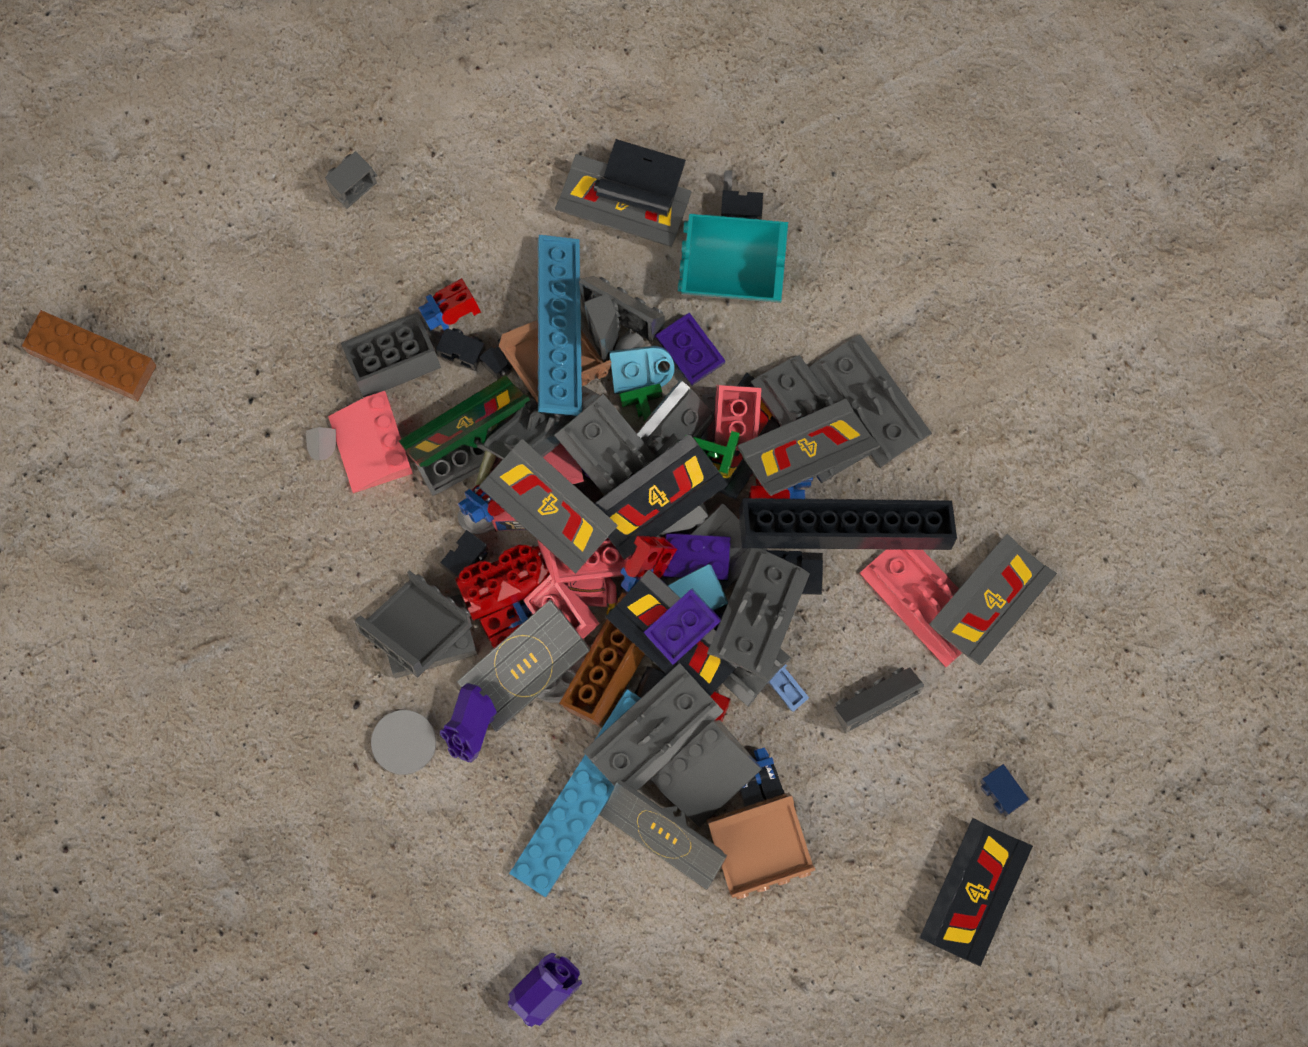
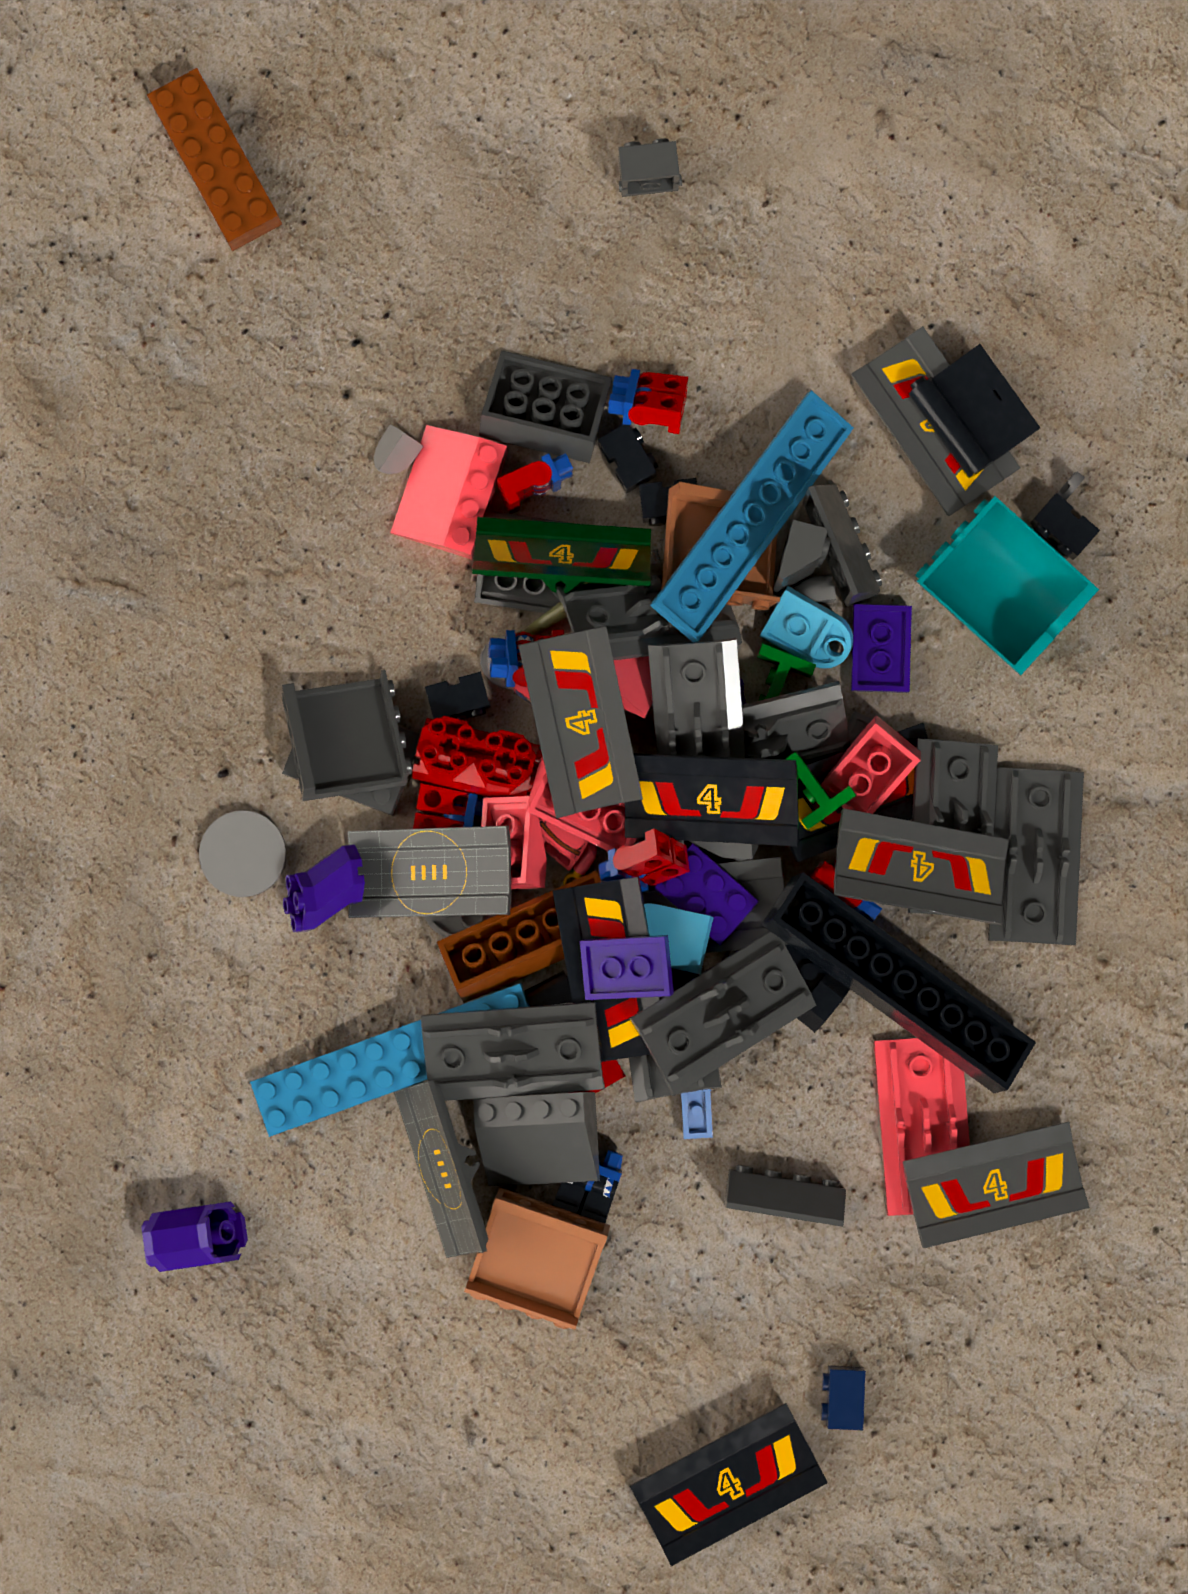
camera: 40 degrees right, 10 degrees up
(415, 399) = (533, 480): none -> red hips

